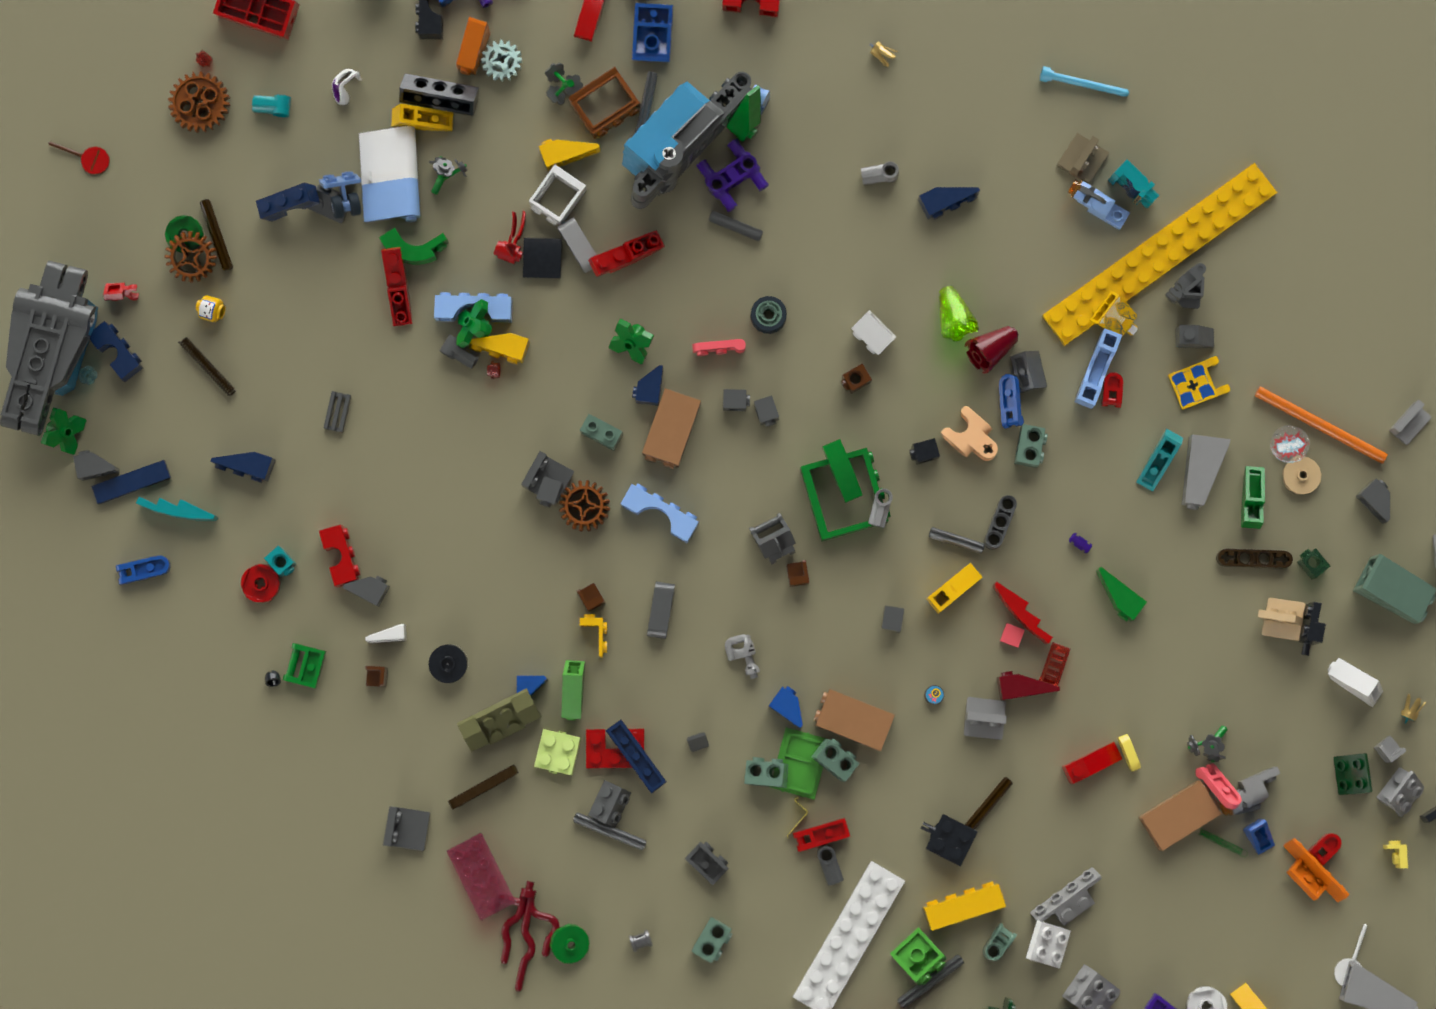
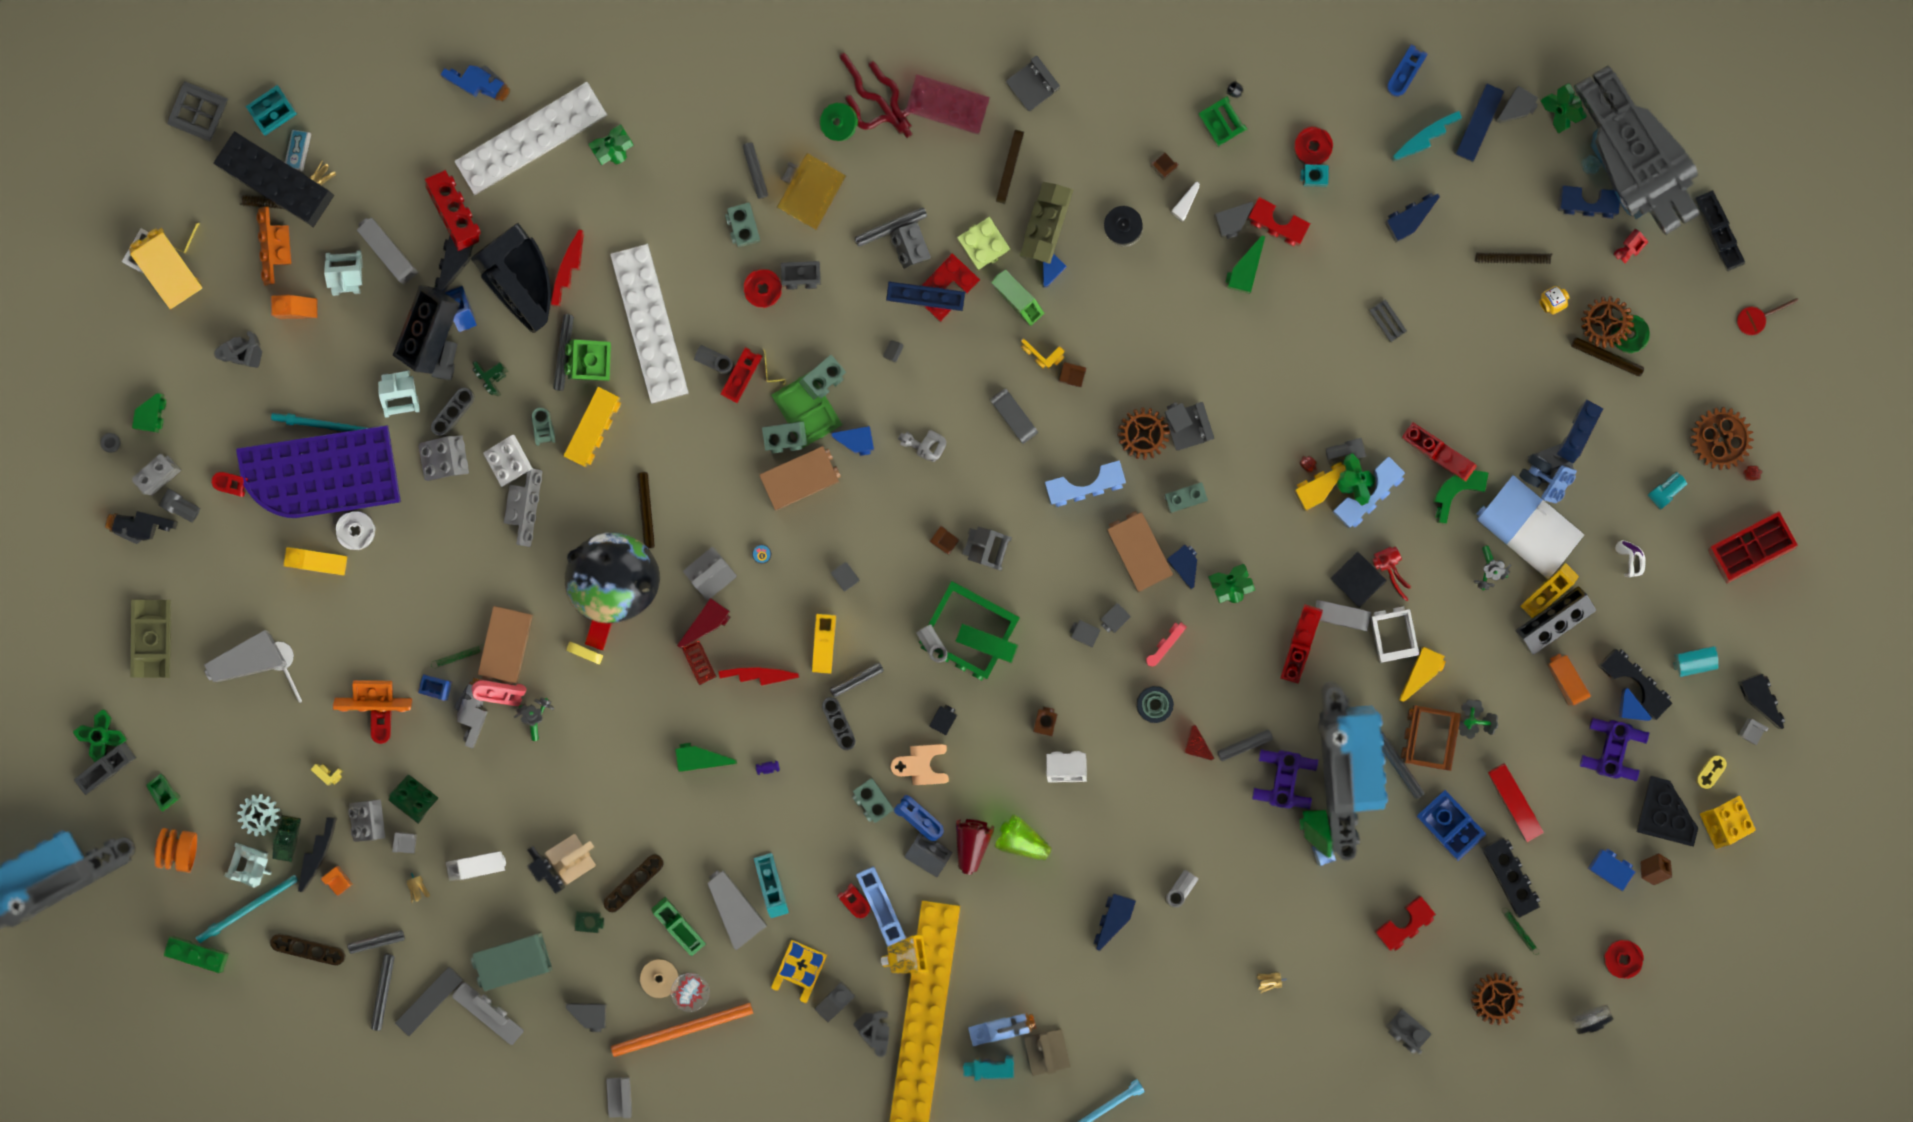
camera: 130 degrees right, 5 degrees up
(51, 239) = (1719, 230): none -> black slope
(398, 545) = (1244, 272): none -> green slope
(508, 57) = (1545, 695): light aqua gear -> none
(639, 914) = (811, 191): none -> clear yellow piece
(663, 970) = (755, 170): none -> dark grey axle
(737, 889) = (752, 291): none -> red plate
(769, 258) = (1196, 745): none -> clear red slope
(950, 839) = (648, 463): black plate -> none
(1012, 635) = (749, 652): coral tile -> none
(1070, 774) = (609, 590): none -> black piece

